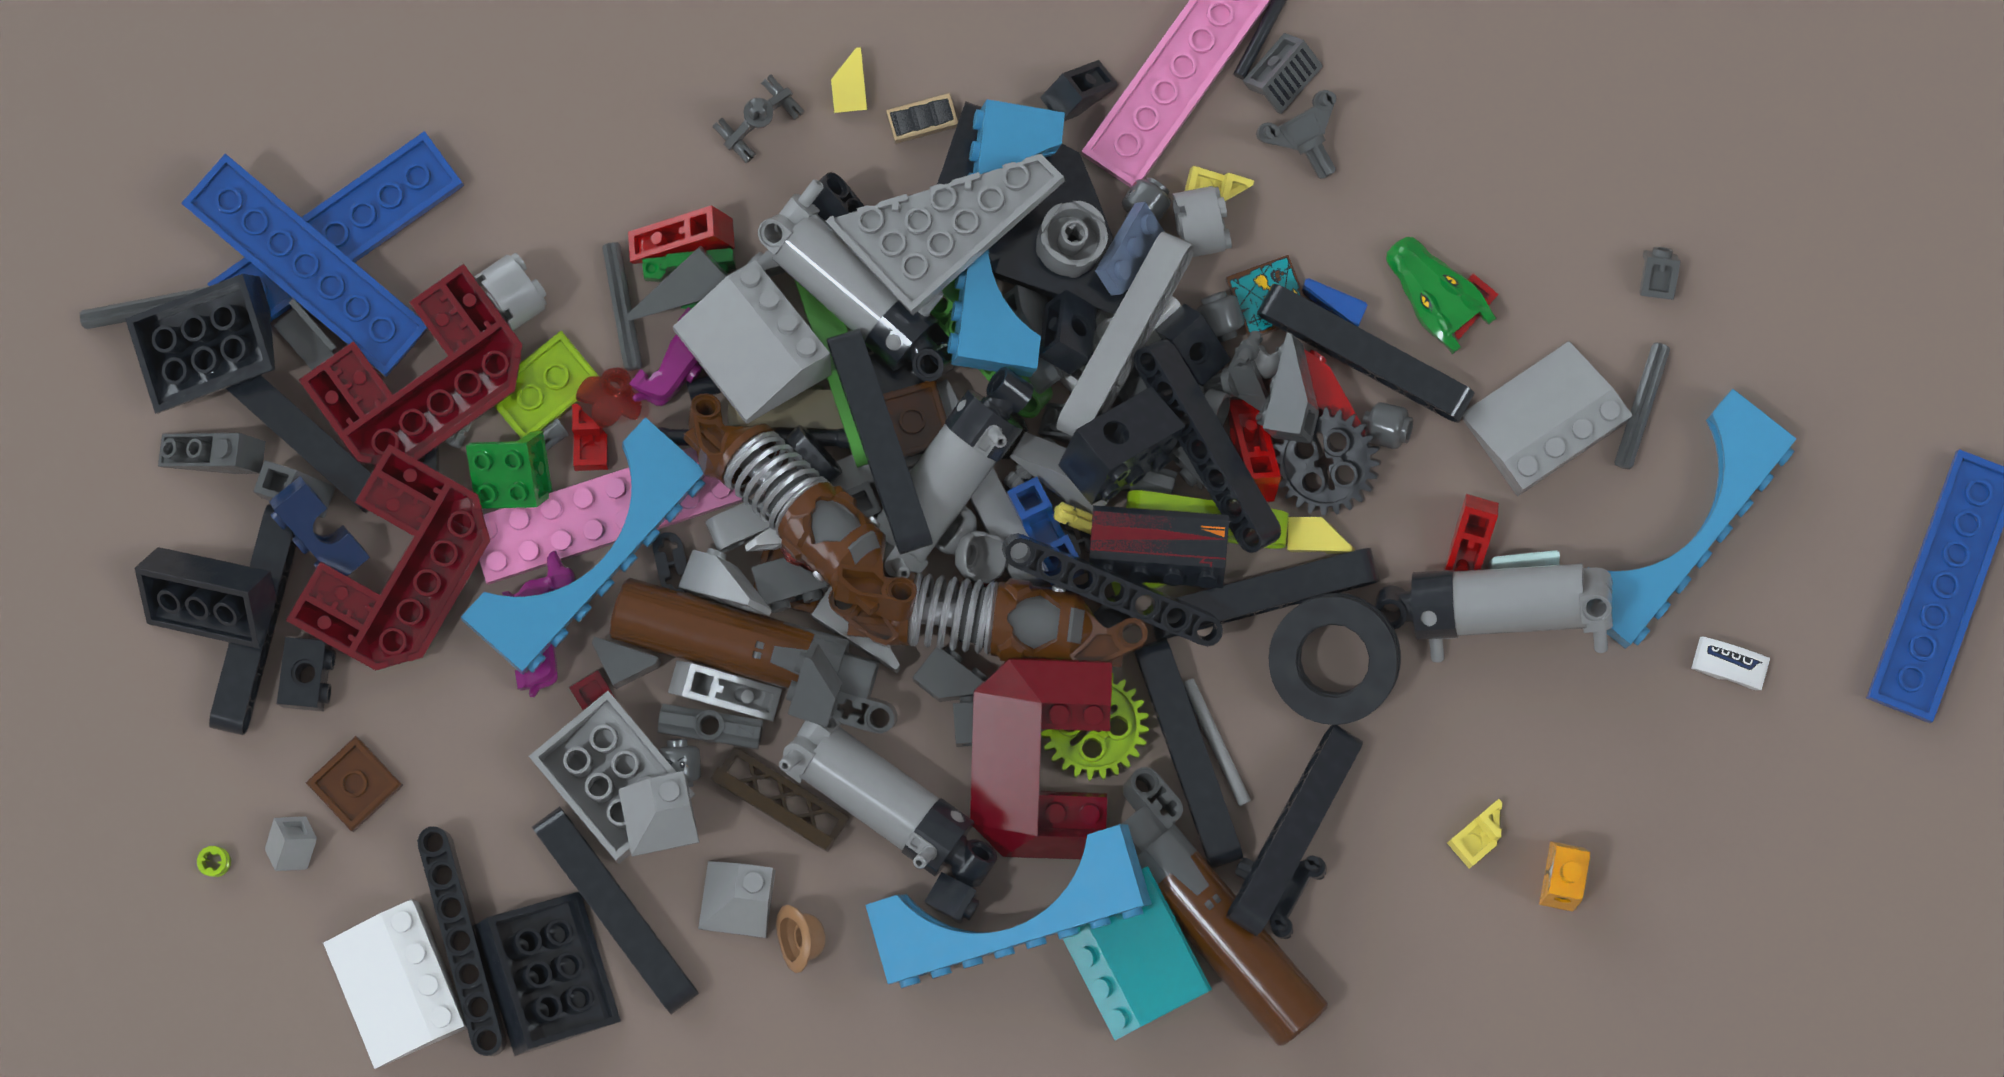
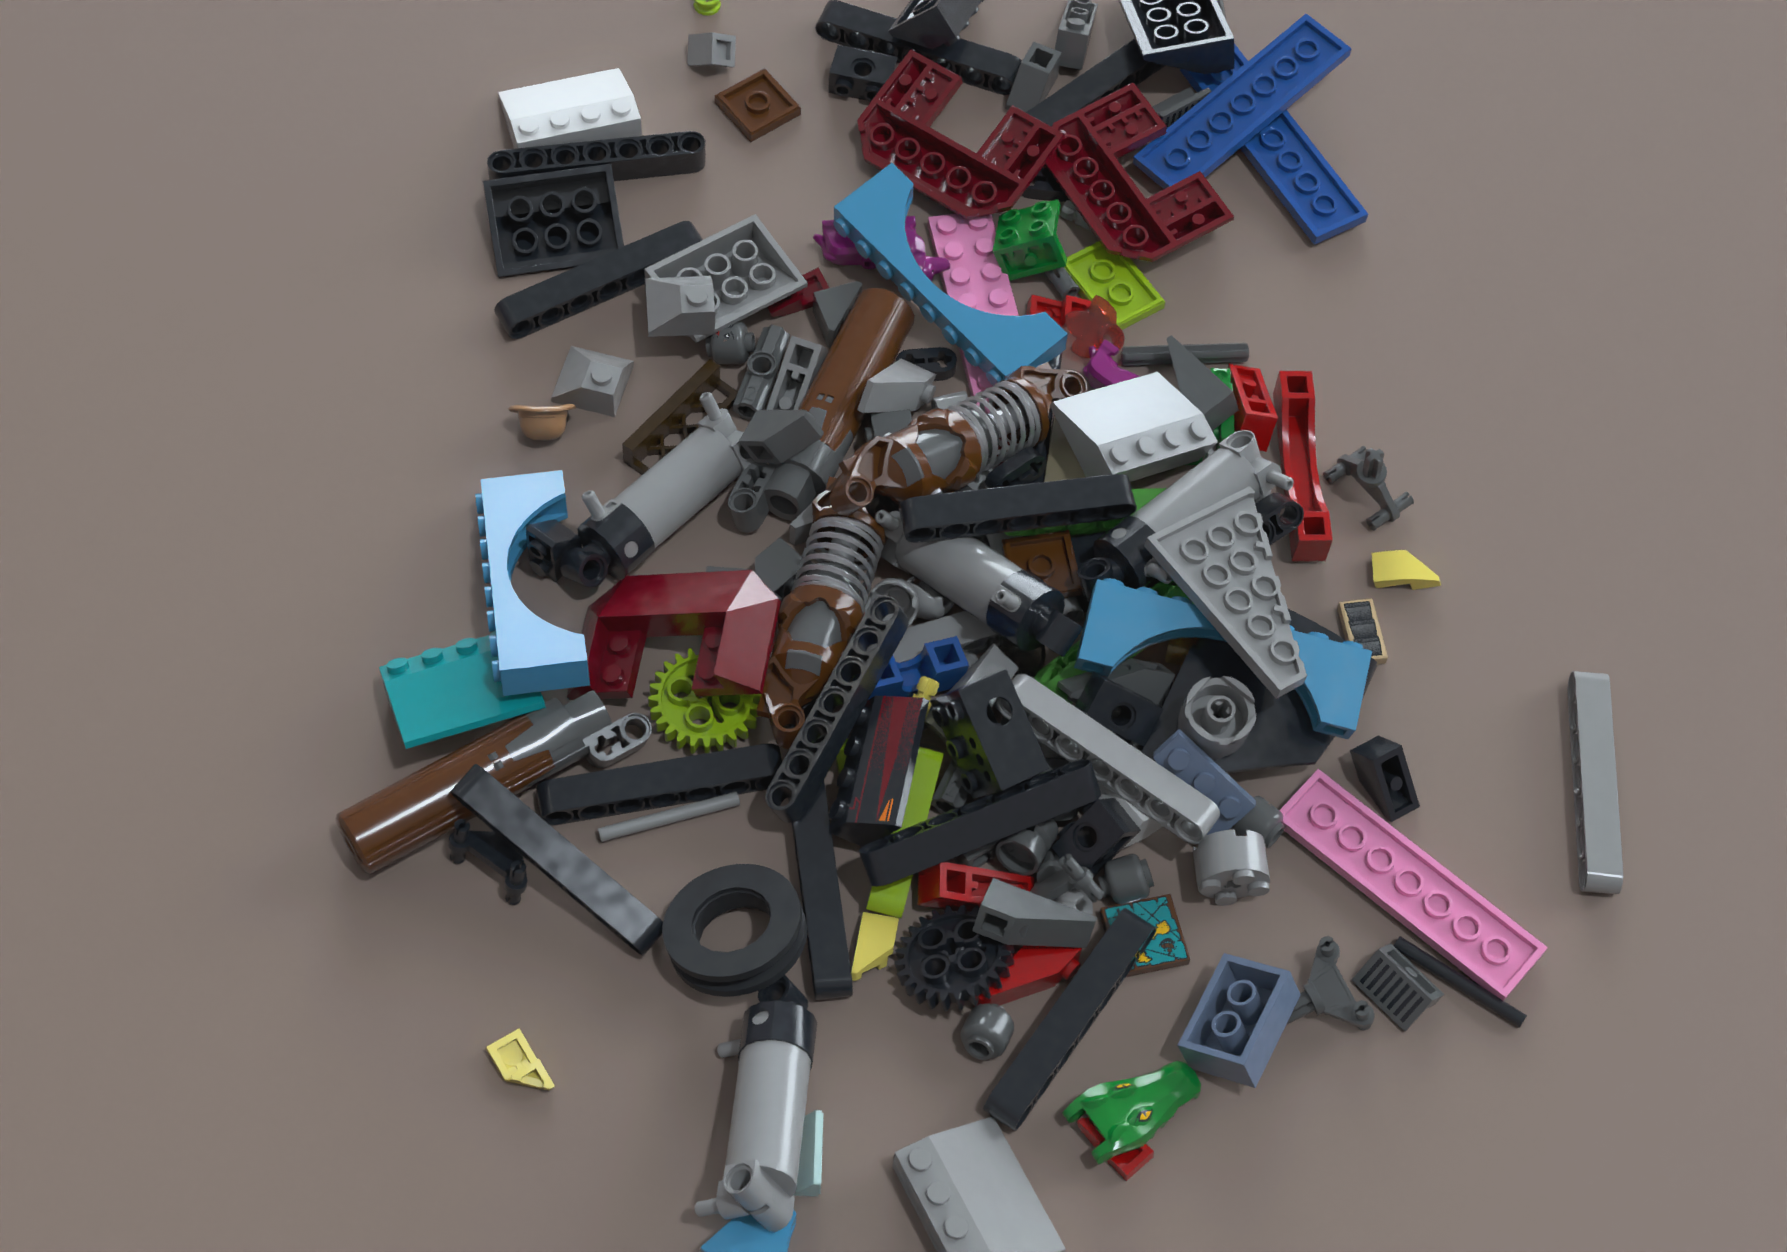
camera: 90 degrees right, 20 degrees down
(298, 508) = (1006, 66): dark blue arch -> none
(512, 290) = (1204, 257): light grey brick -> none
(691, 190) = (1296, 437): none -> red arch
(1228, 184) = (1273, 904): light yellow slope -> none
(1334, 301) = (1123, 1006): blue slope -> none
(1350, 205) = (1239, 1020): none -> sand blue brick
(1472, 534) = (852, 1099): red slope -> none
(1564, 876) = (454, 1136): light orange torso -> none

